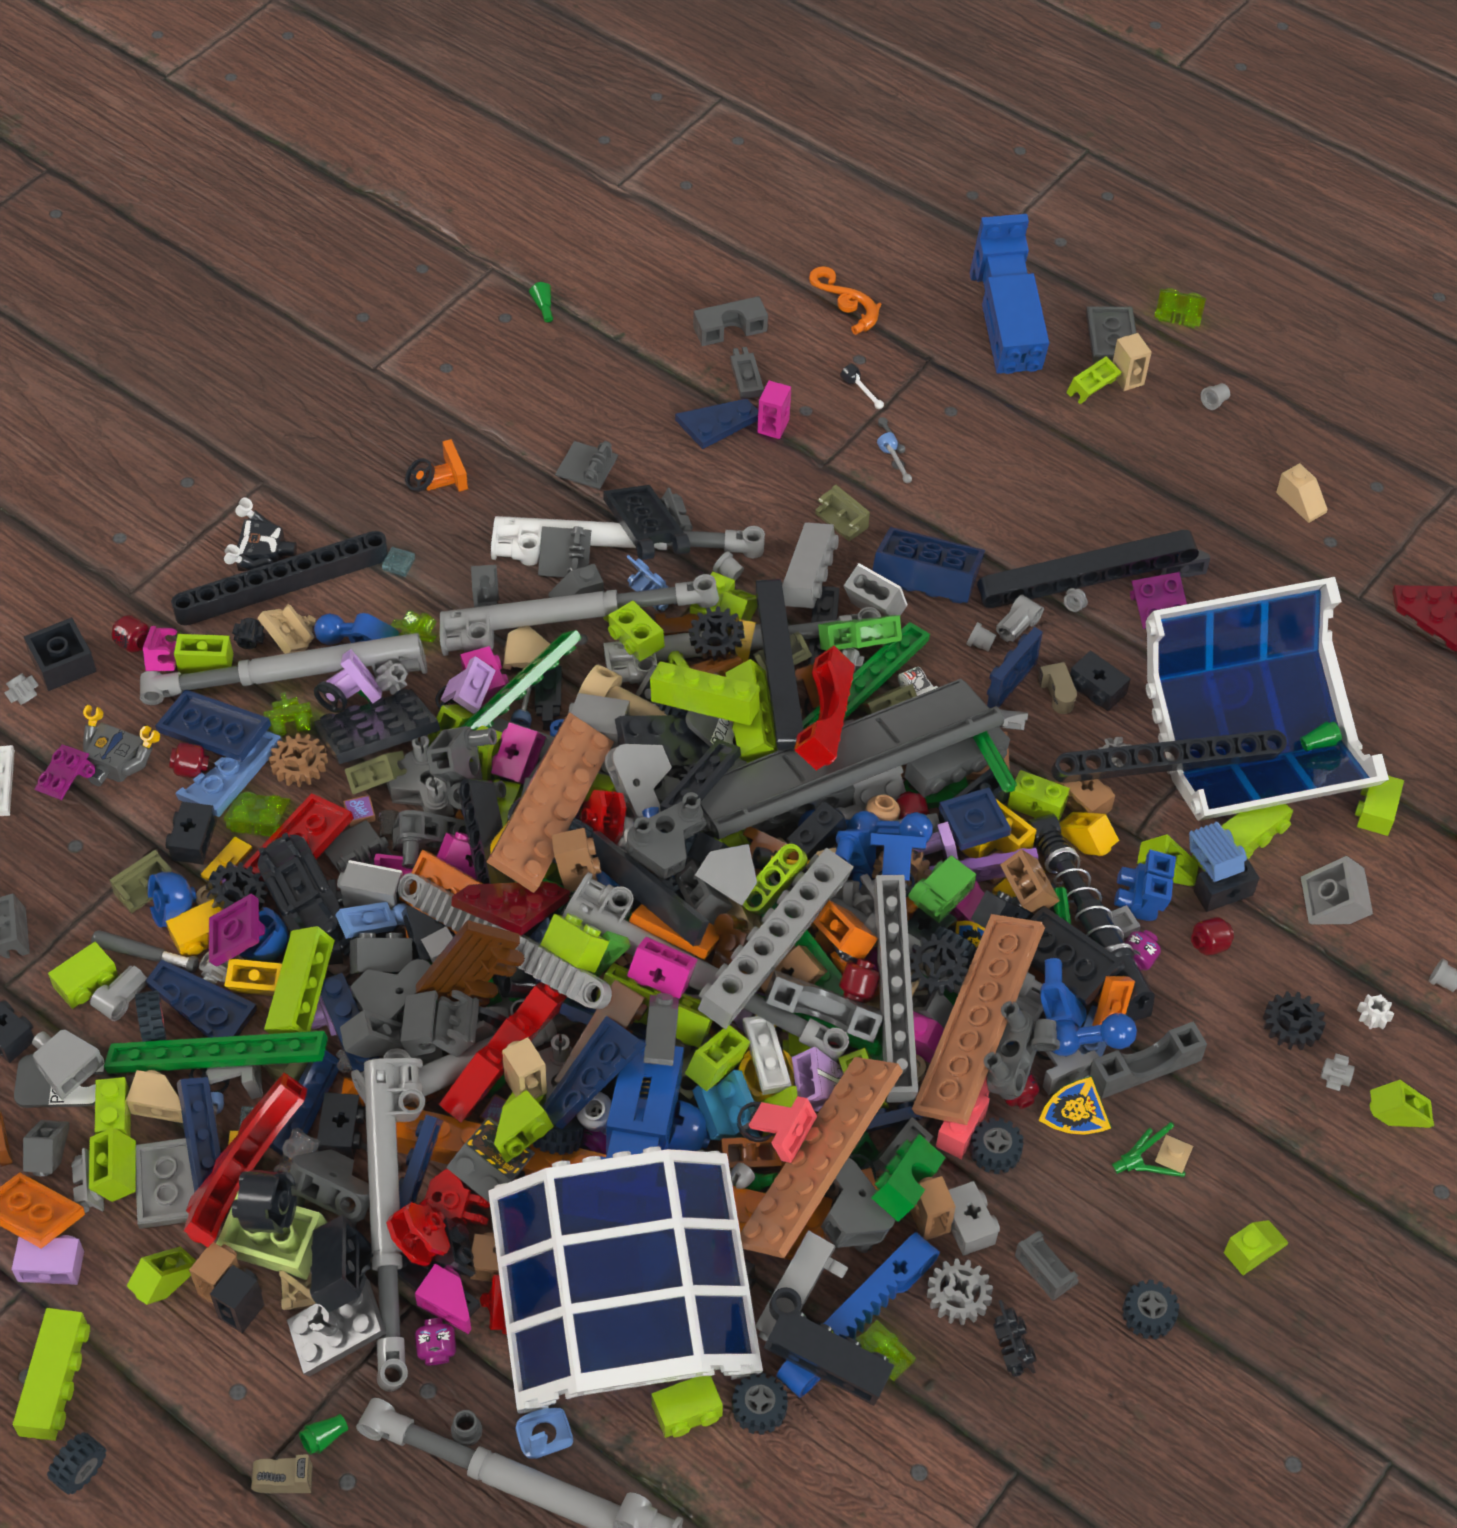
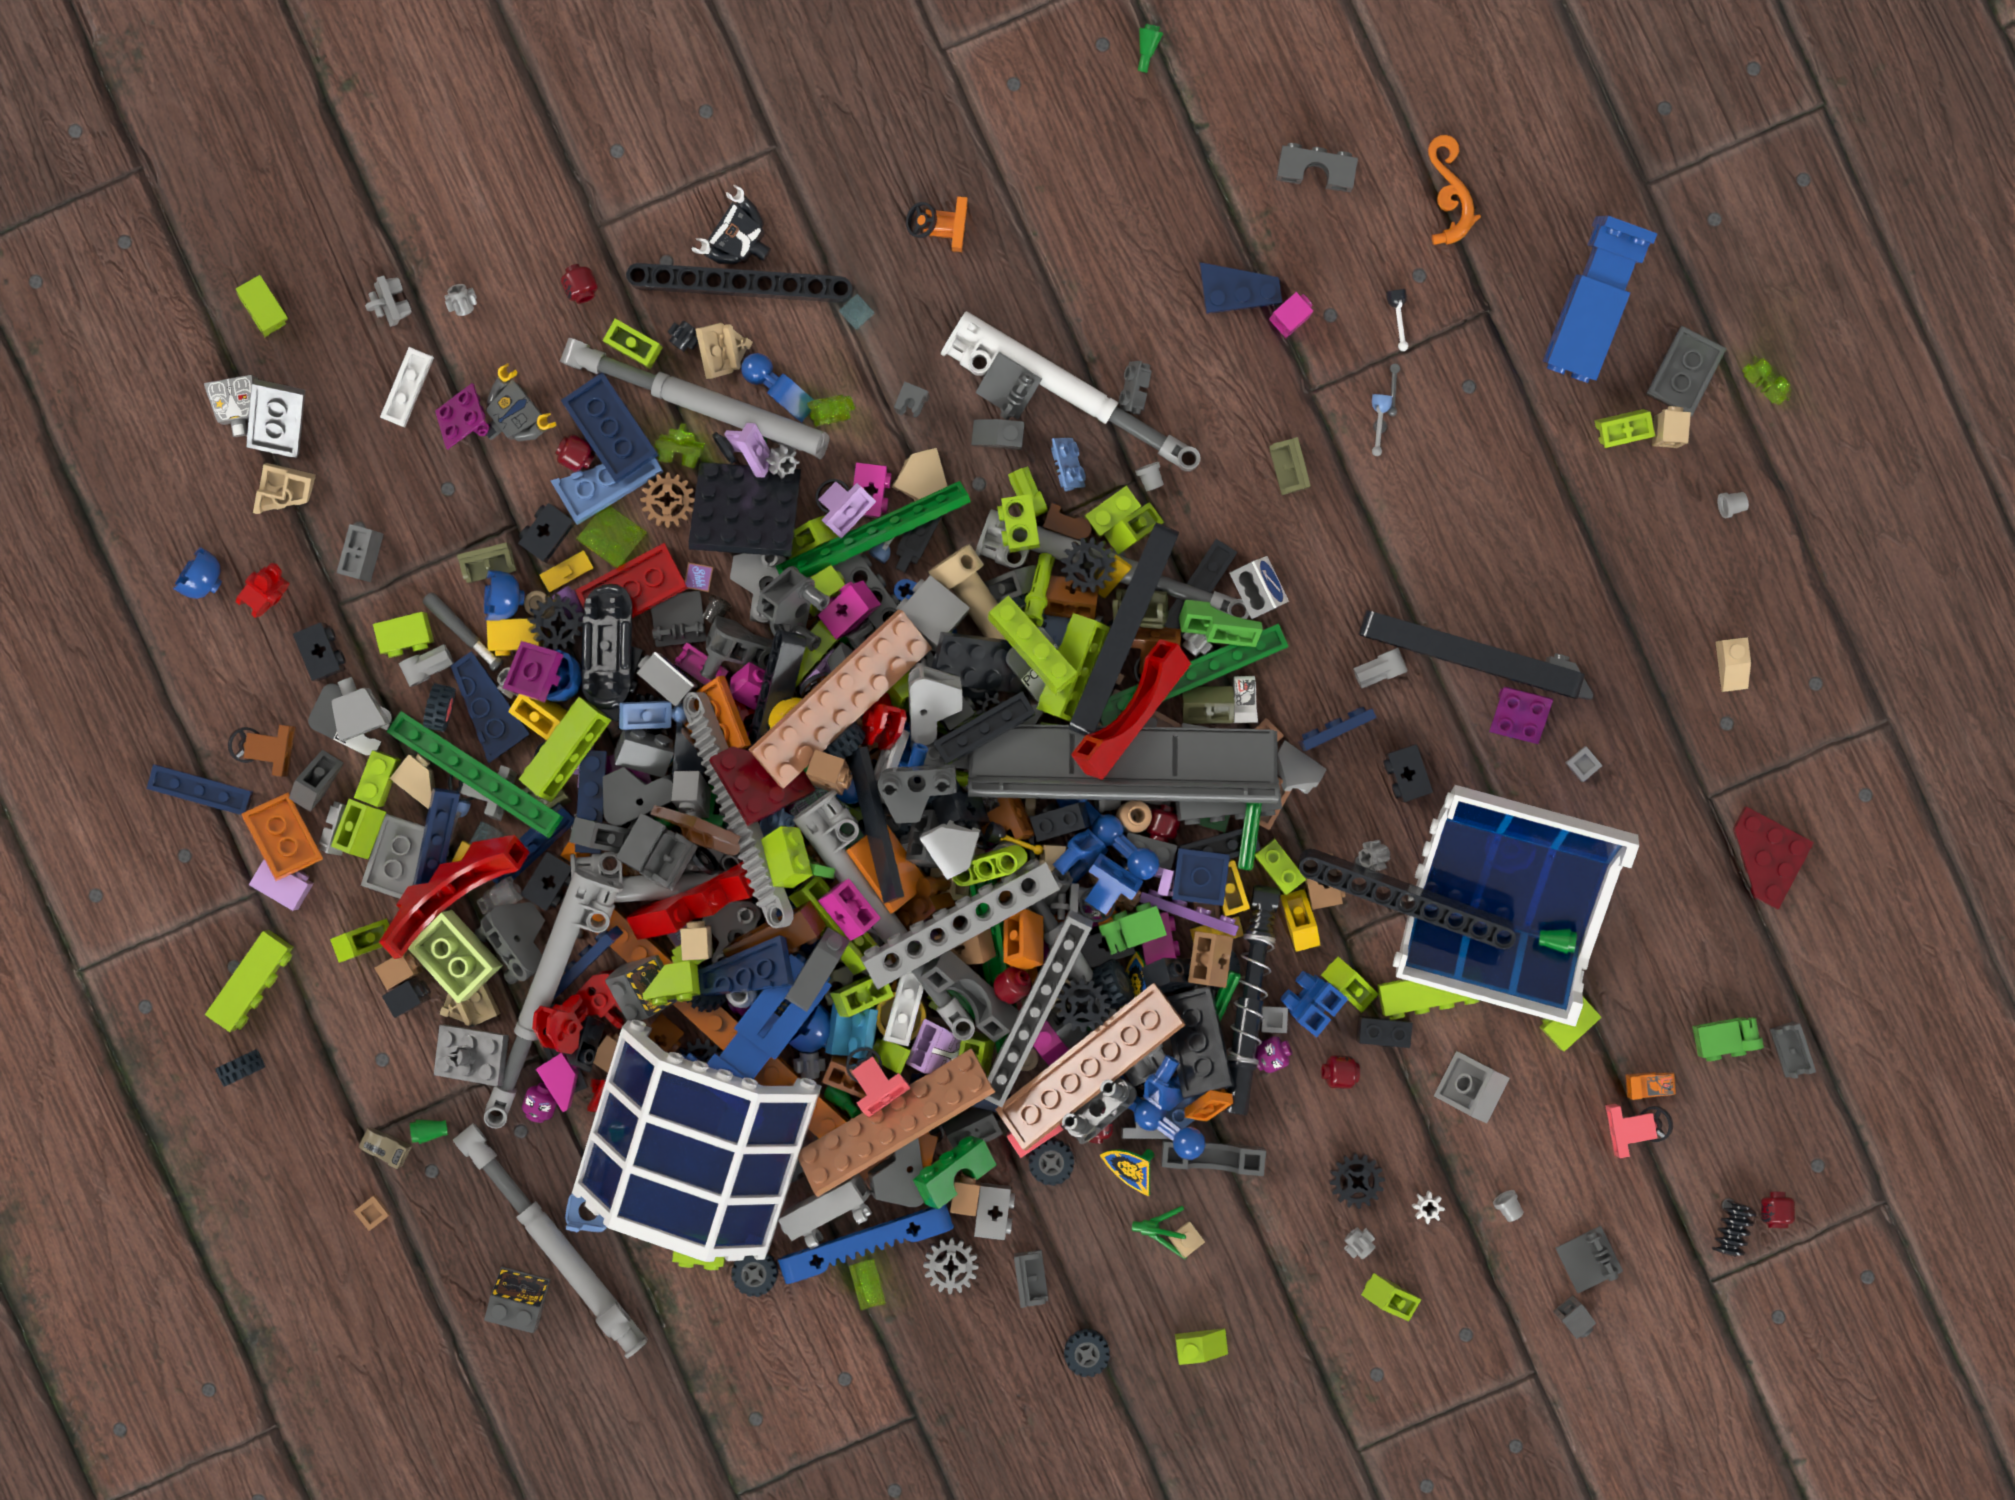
camera: 25 degrees right, 35 degrees up
(60, 654) = (507, 279): black brick -> none
(158, 651) = (597, 320): dark pink hinge -> none
(265, 1201) = (450, 947): black brick -> none
(338, 1263) = (486, 1022): black wedge -> none
(375, 772) = (725, 563): olive hinge -> none
(470, 1436) = (541, 1174): dark grey piece -> none
(475, 626) = (882, 426): light grey piece -> none
(587, 464) = (1085, 282): dark grey hinge -> none
(646, 520) = (1100, 381): black hinge -> none
(741, 1176) = (831, 1097): light grey hinge -> none
(746, 374) = (1295, 244): dark grey hinge -> none
(810, 565) = (1221, 517): light grey brick -> none
(826, 1353) = (815, 1274): black hinge -> none
(928, 564) = (1335, 564): dark blue slope -> none
(981, 637) = (1333, 672): light grey piece -> none
(1010, 1333) = (967, 1335): black hinge -> none
(1045, 1036) = (1130, 1113): dark grey piece -> none
(1060, 686) = (1371, 762): dark tan leg -> none
(1075, 600) = (1445, 673): light grey plate -> none
(1217, 851) = (1385, 1013): medium blue brick -> none

